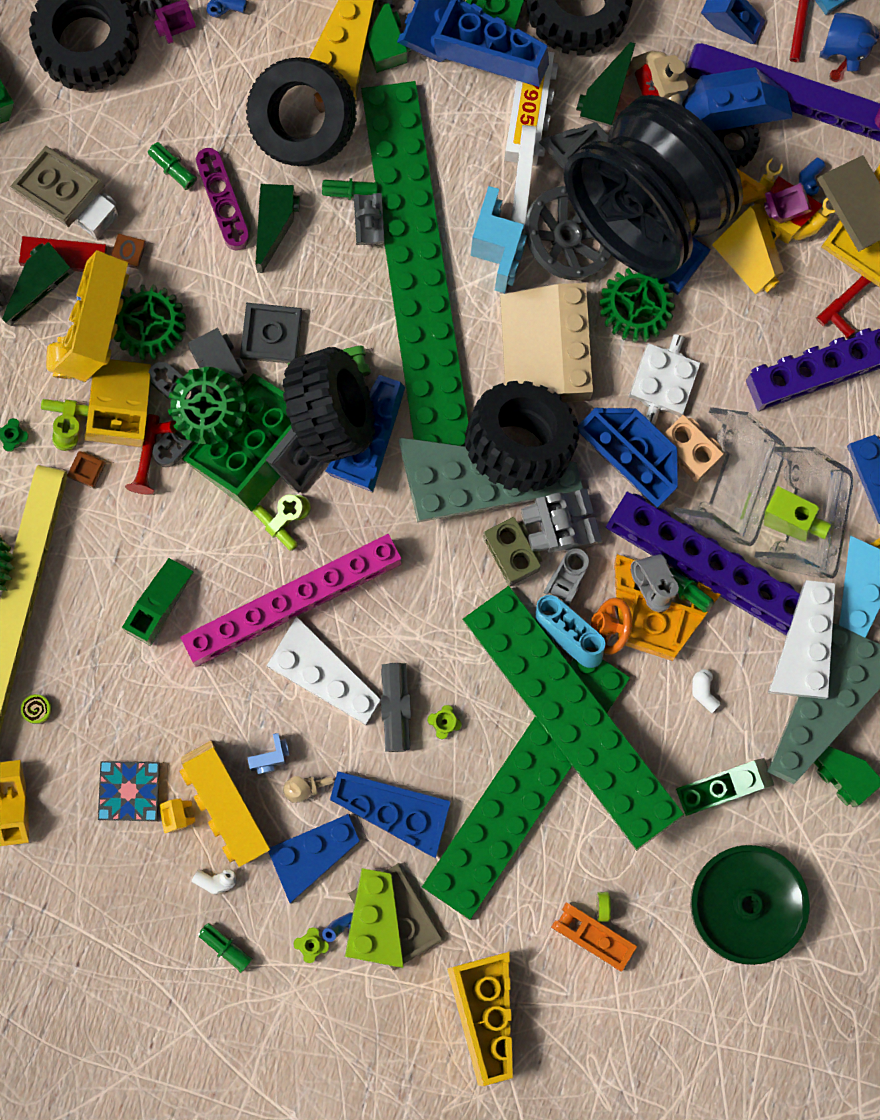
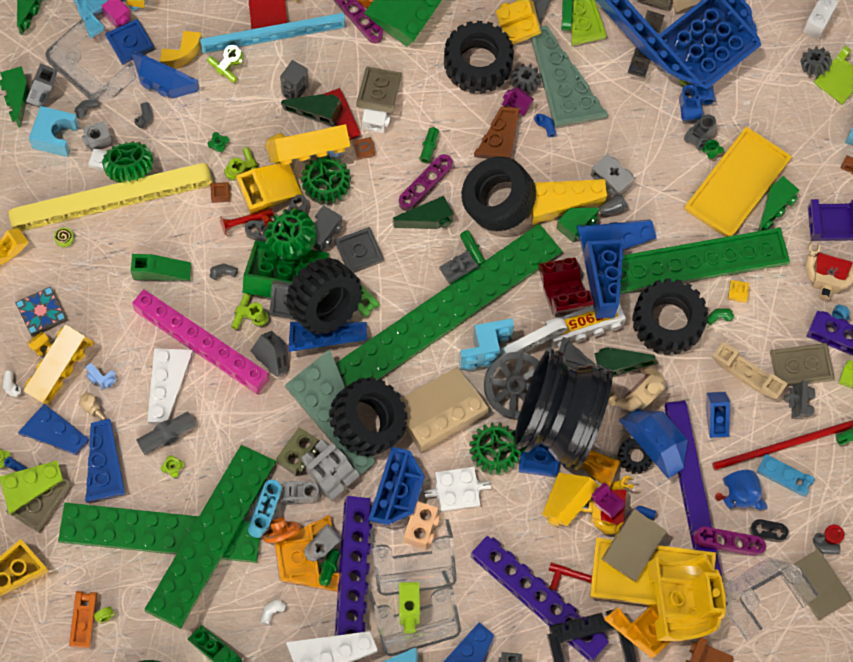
camera: 65 degrees right, 10 degrees down
(200, 522) = (215, 271): none -> dark grey arm
(211, 70) = (501, 135): none -> dark orange wing
(360, 516) = (272, 353): none -> dark grey slope
(472, 106) = (563, 286): none -> dark red slope

